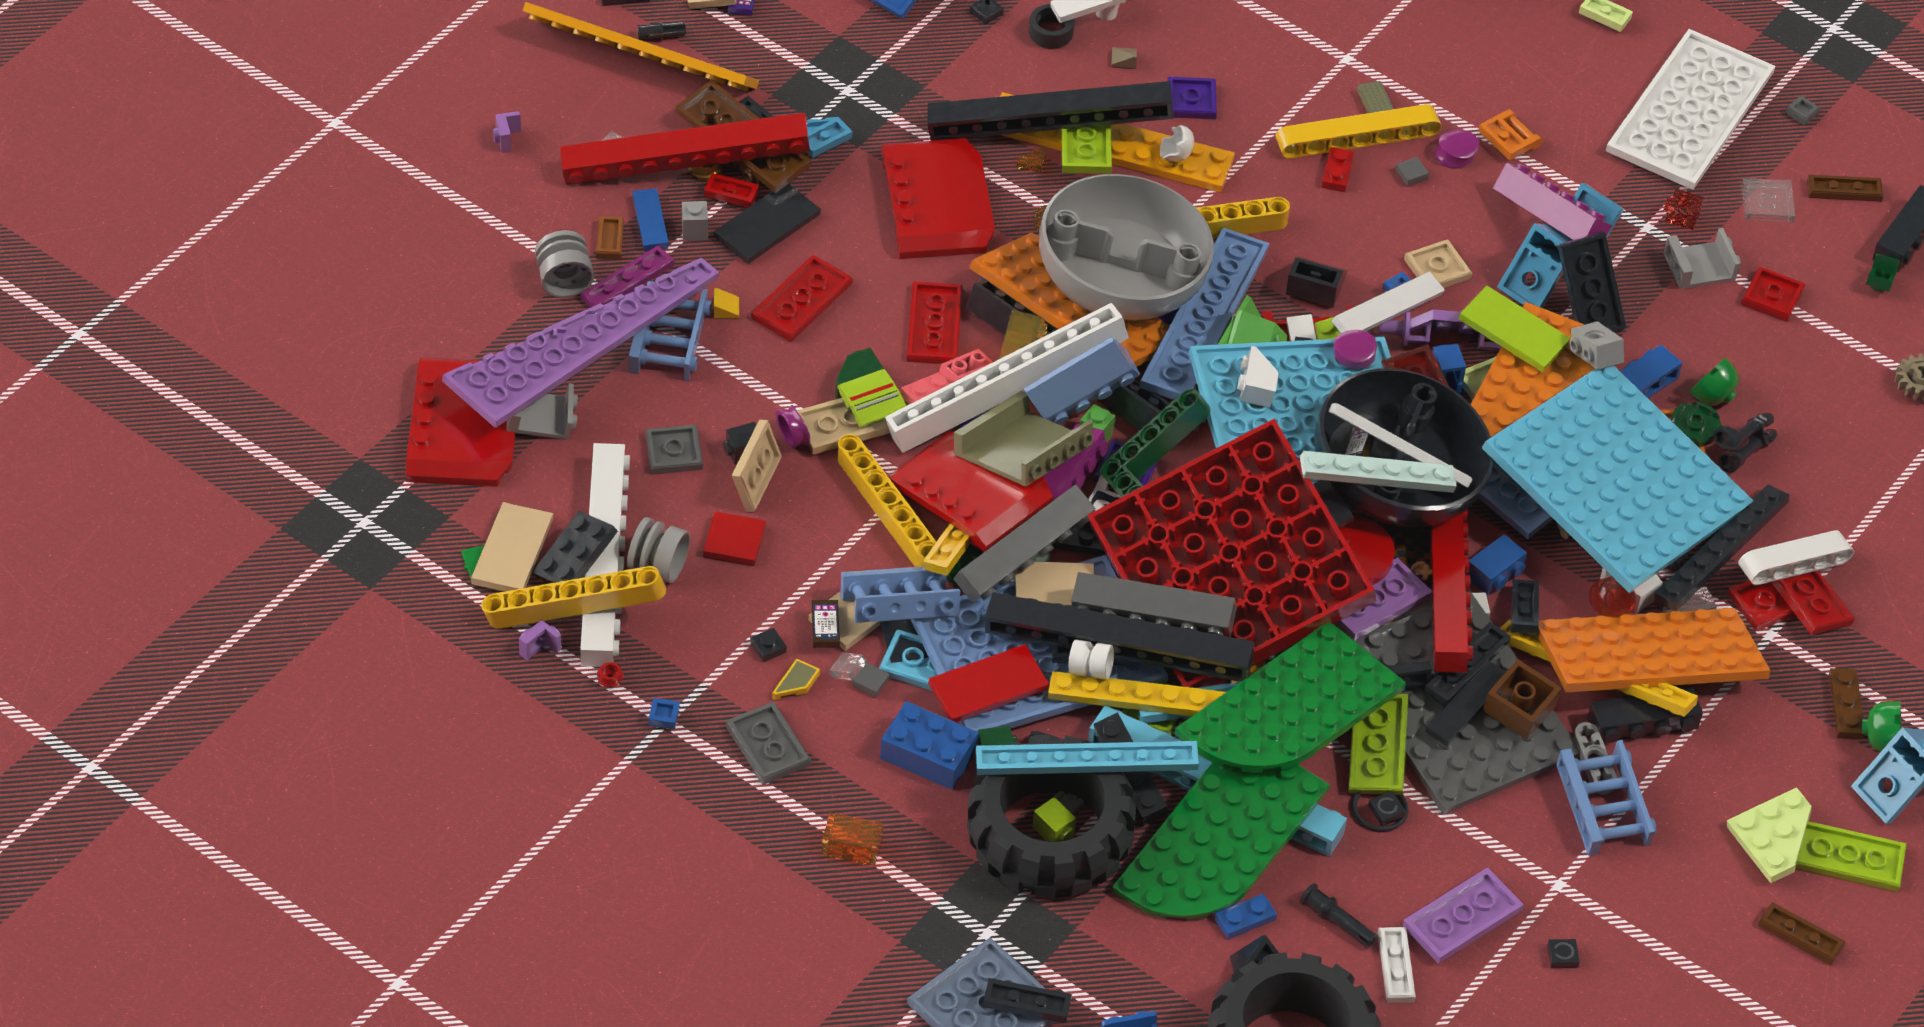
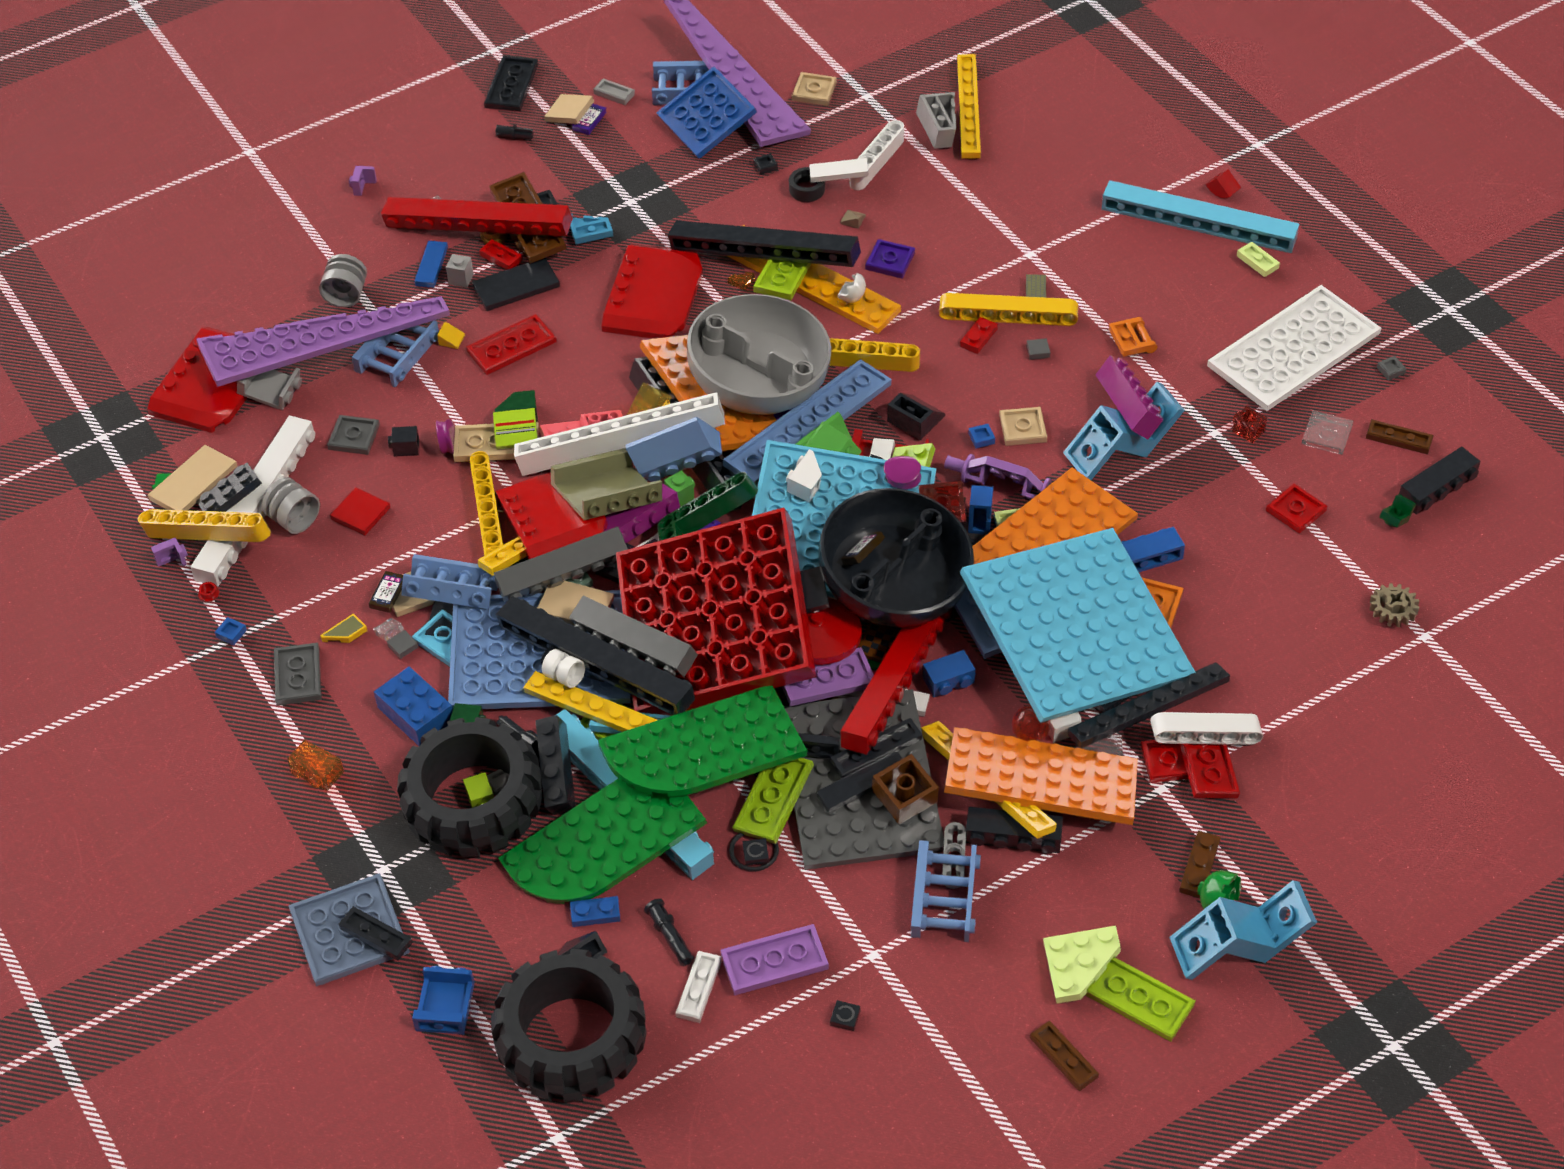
camera: 25 degrees right, 0 degrees up
(610, 237) = (395, 271): dark orange tile -> none
(628, 277) = (392, 300): magenta tile -> none
(646, 49) = (489, 140): light orange plate -> none
(756, 466) = (399, 459): tan tile -> none
(768, 645) = (340, 598): black plate -> none
(934, 322) = (600, 383): red tile -> none
(988, 683) = (481, 668): red tile -> none
(1087, 757) = (505, 745): medium azure plate -> none
(1377, 471) = (854, 570): light aqua plate -> none
(1389, 304) = (957, 445): white tile -> none
(1392, 440) = (889, 552): white tile -> none
(1421, 570) = (874, 662): reddish brown axle -> none
(1456, 148) = (1083, 338): magenta piece -> none
(1514, 328) = (1047, 485): lime tile -> none
(1525, 607) = (953, 713): black plate -> none
(1592, 281) = (1133, 465): black tile -> none
(1597, 345) = (1106, 513): light grey brick -> none
(1697, 422) = (1174, 597): dark green tile -> none
(1703, 262) = (1246, 471): light grey panel -> none
(1717, 384) = (1208, 569): green cylinder -> none
(1732, 439) = (1194, 616): black piece -> none

